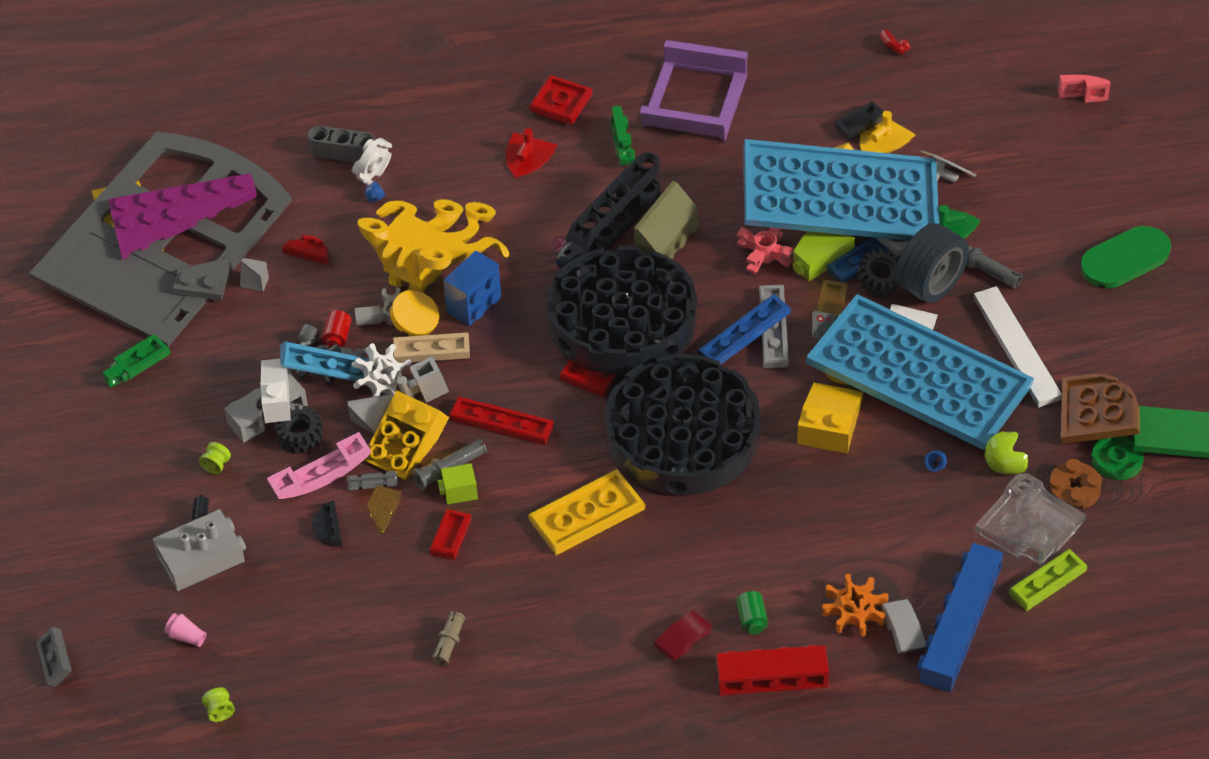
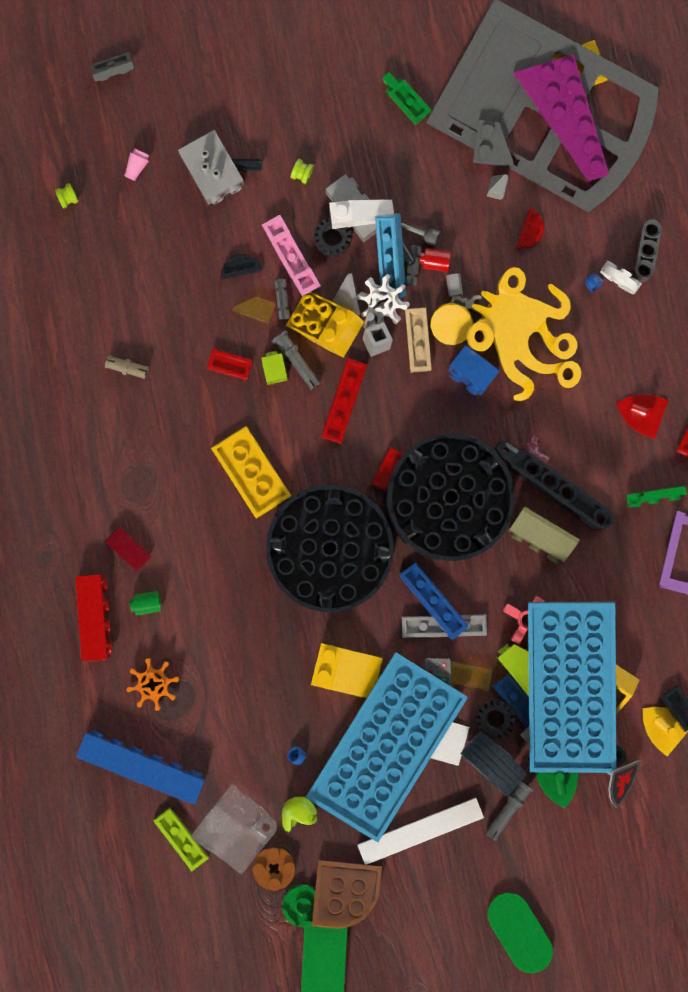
camera: 90 degrees right, 35 degrees up
(904, 625) = (133, 722): light grey slope -> none

